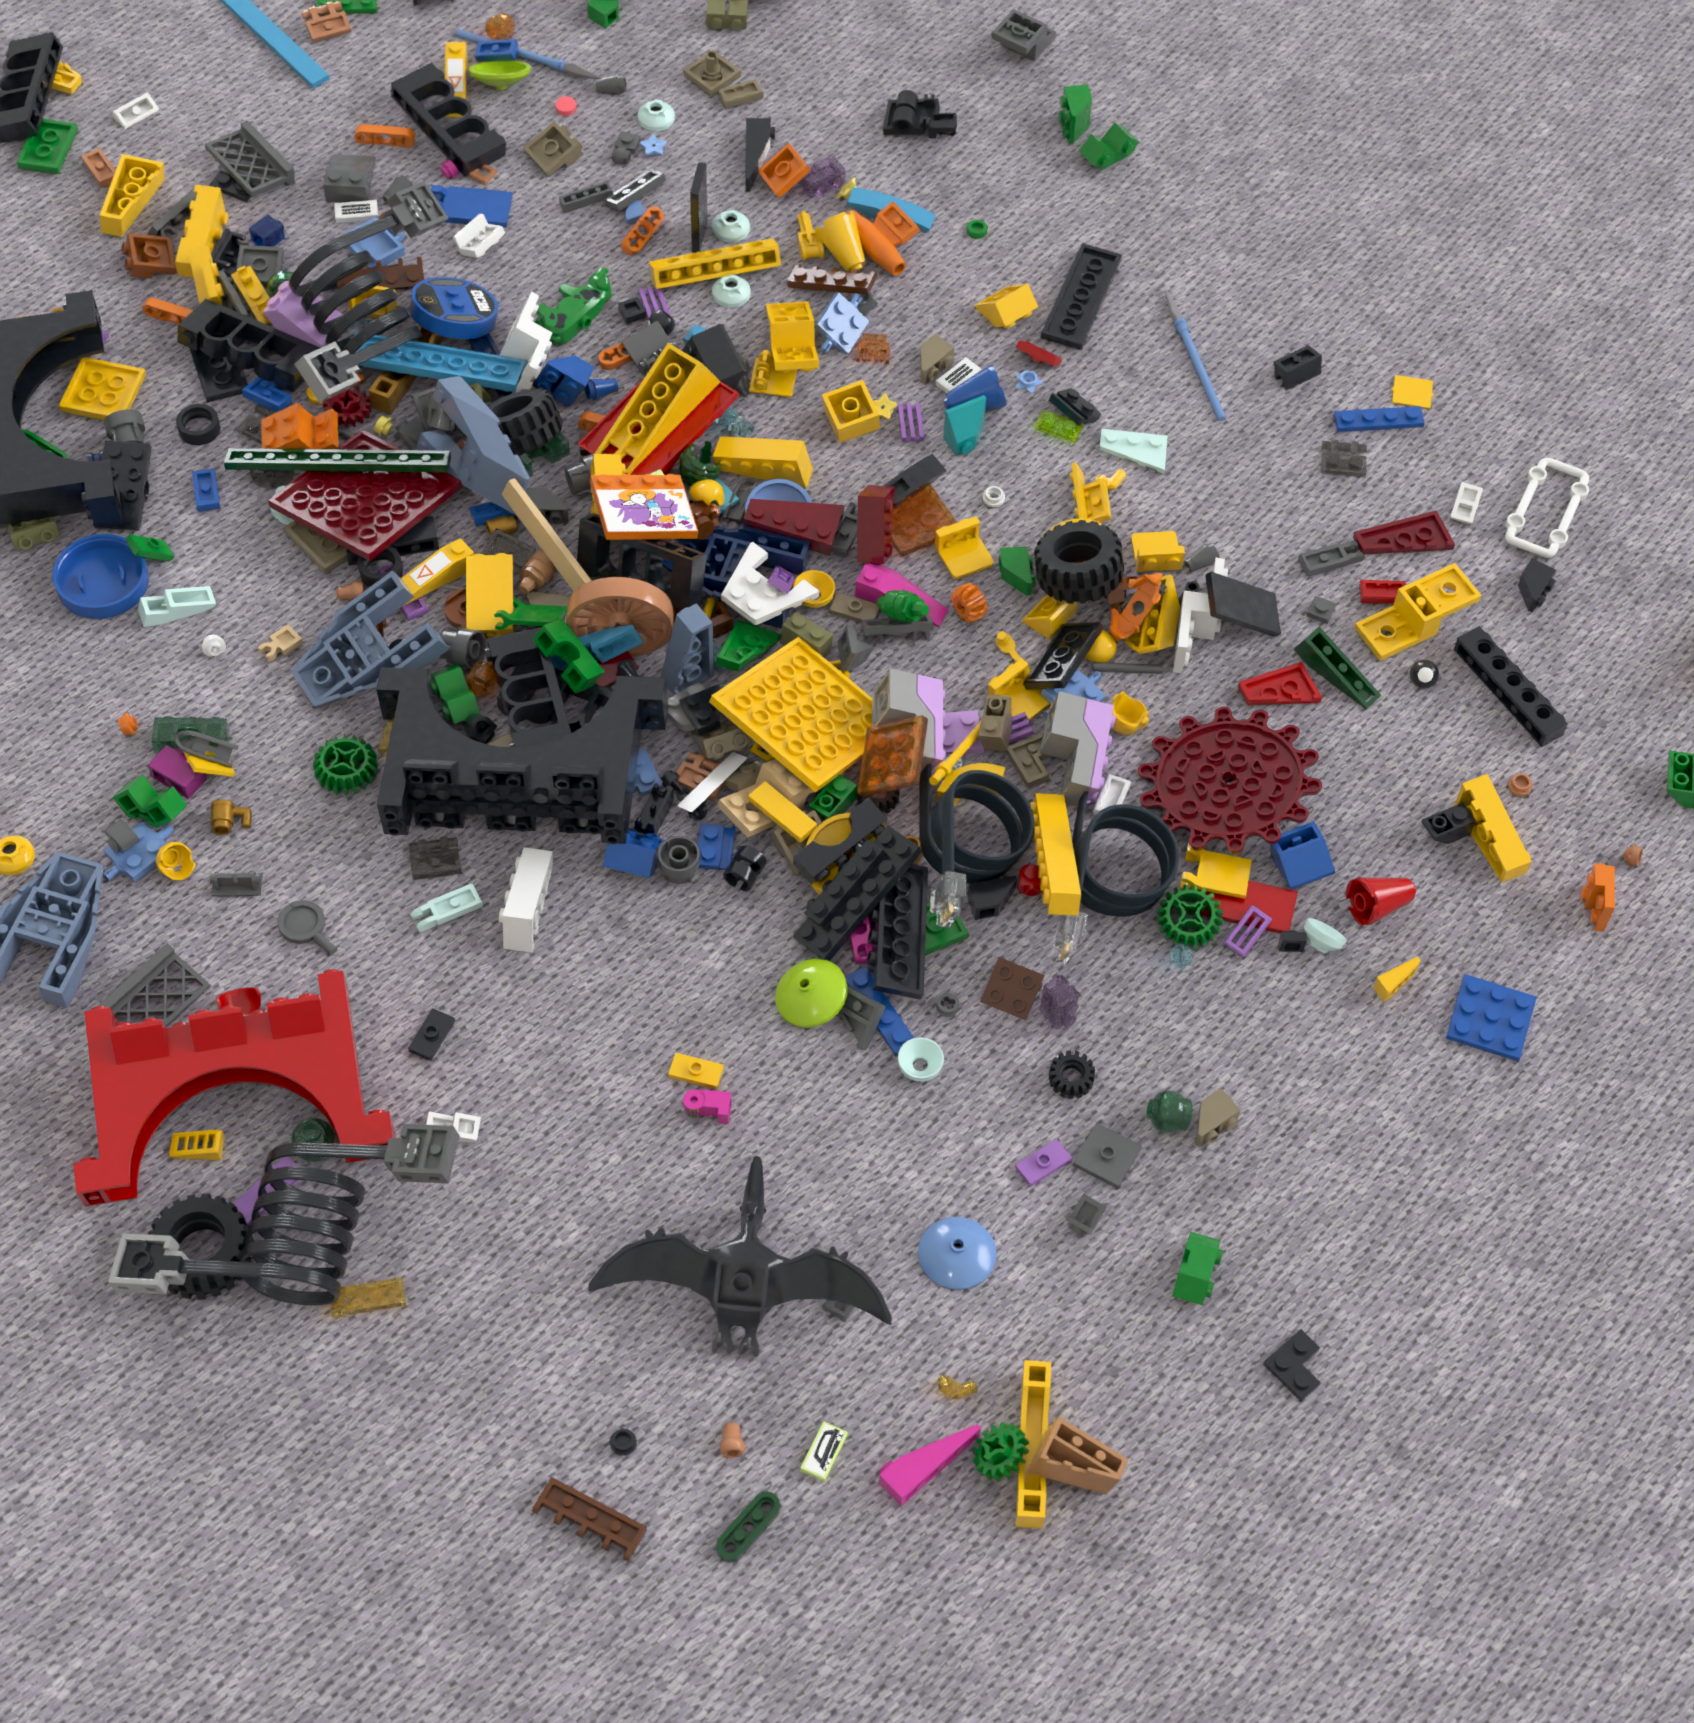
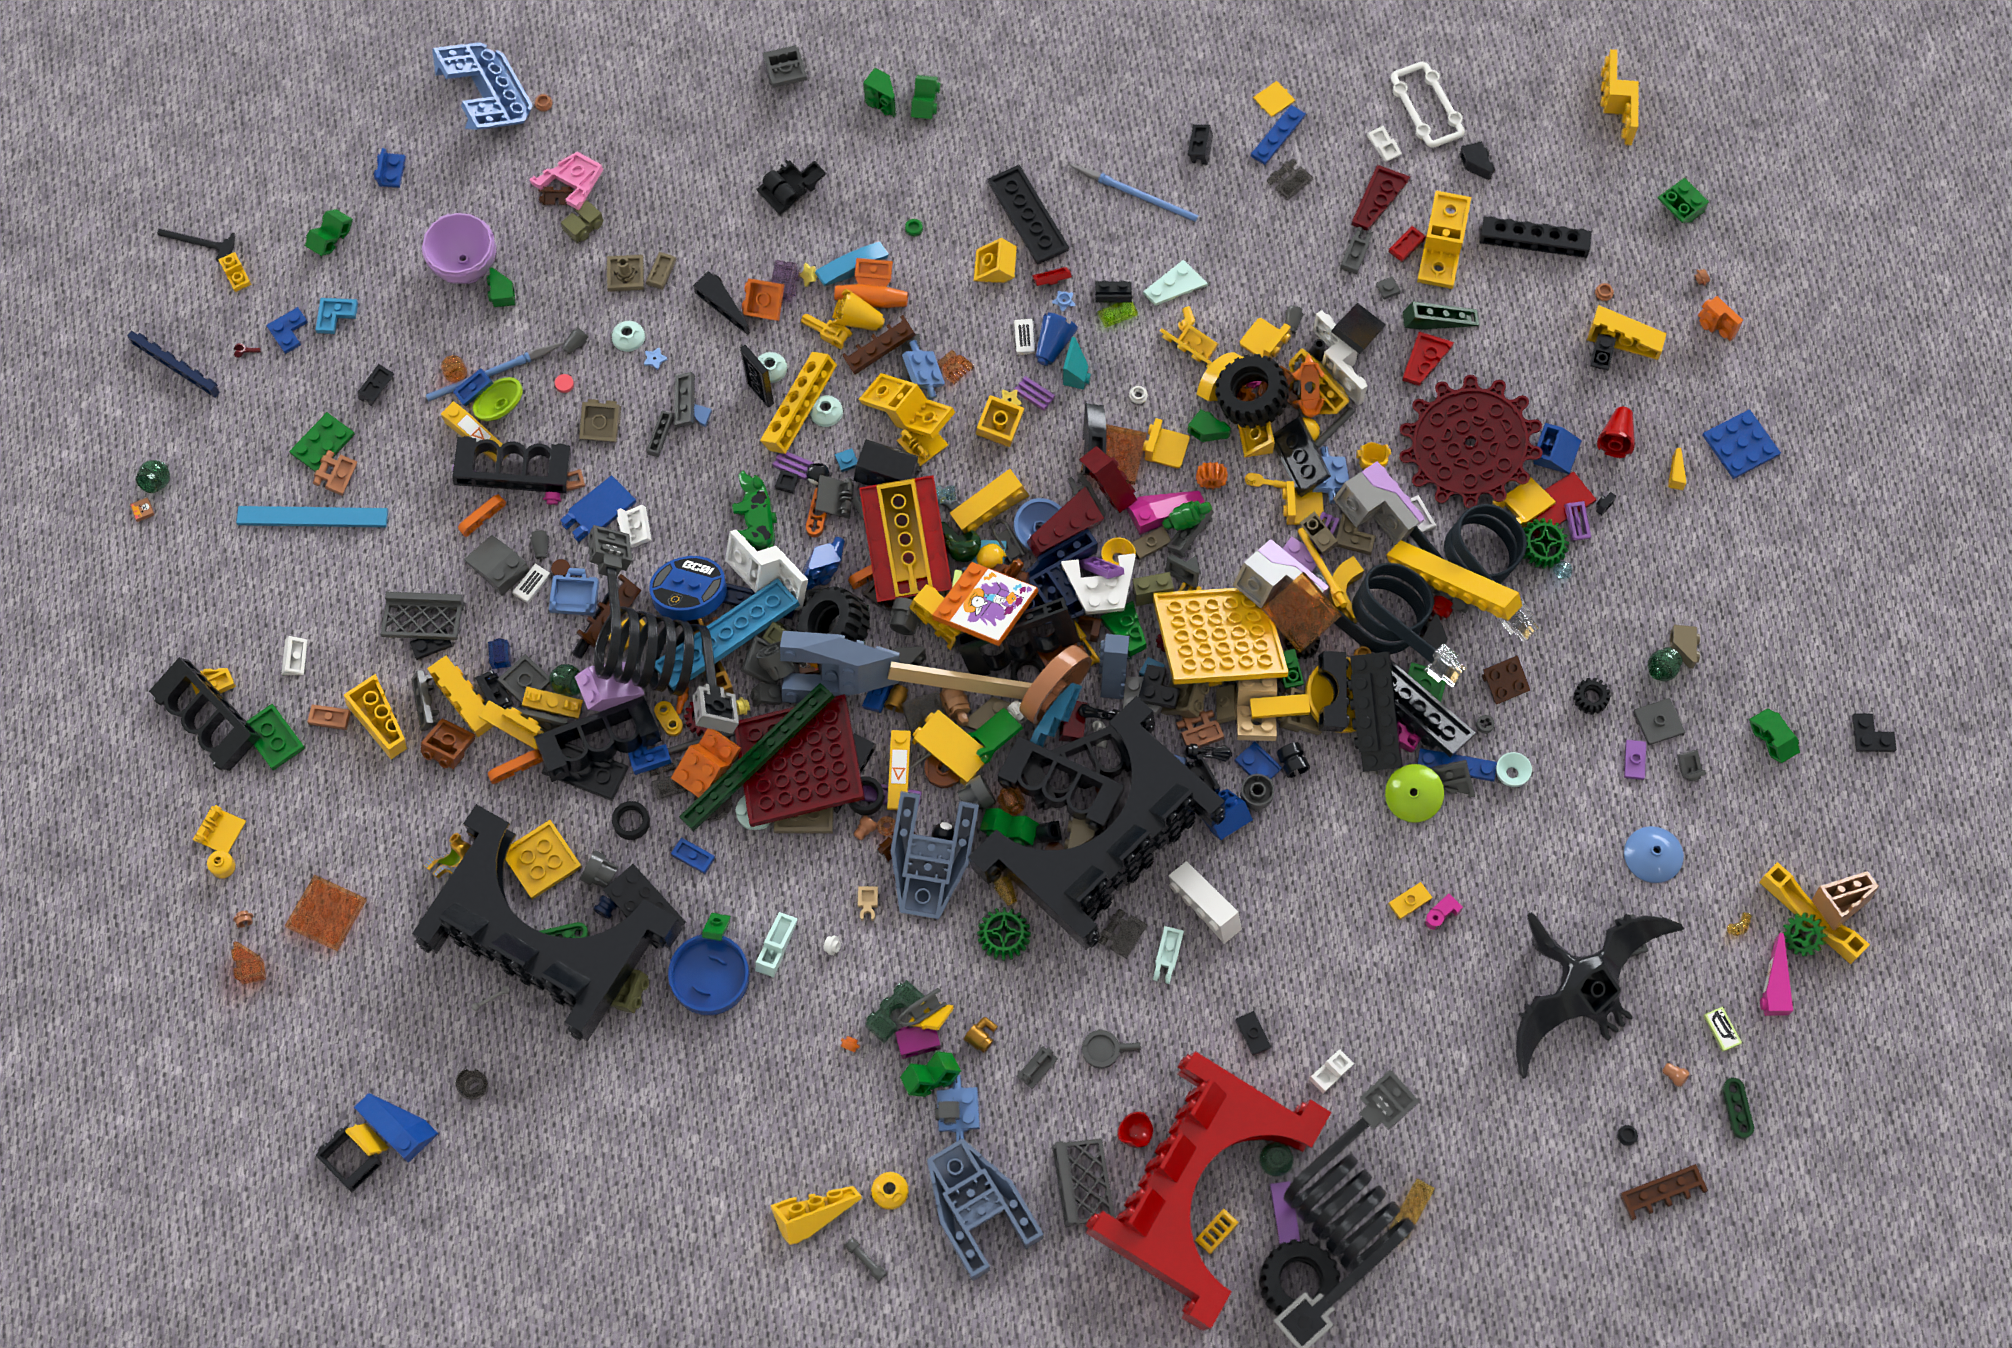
camera: 45 degrees left, 10 degrees up
(173, 855) = (988, 1084): yellow hair -> none
(559, 640) = (1071, 737): green arch -> none
(625, 146) = (636, 372): dark grey plate -> none
(634, 232) = (723, 430): orange beam -> none
(711, 782) = (1215, 729): white sticker -> none
(935, 356) = (997, 339): dark tan slope -> none
(1059, 1002) = (1544, 662): clear purple brick -> none
(1323, 936) = (1617, 483): light aqua piece -> none
(1424, 674) = (1485, 274): black piece -> none

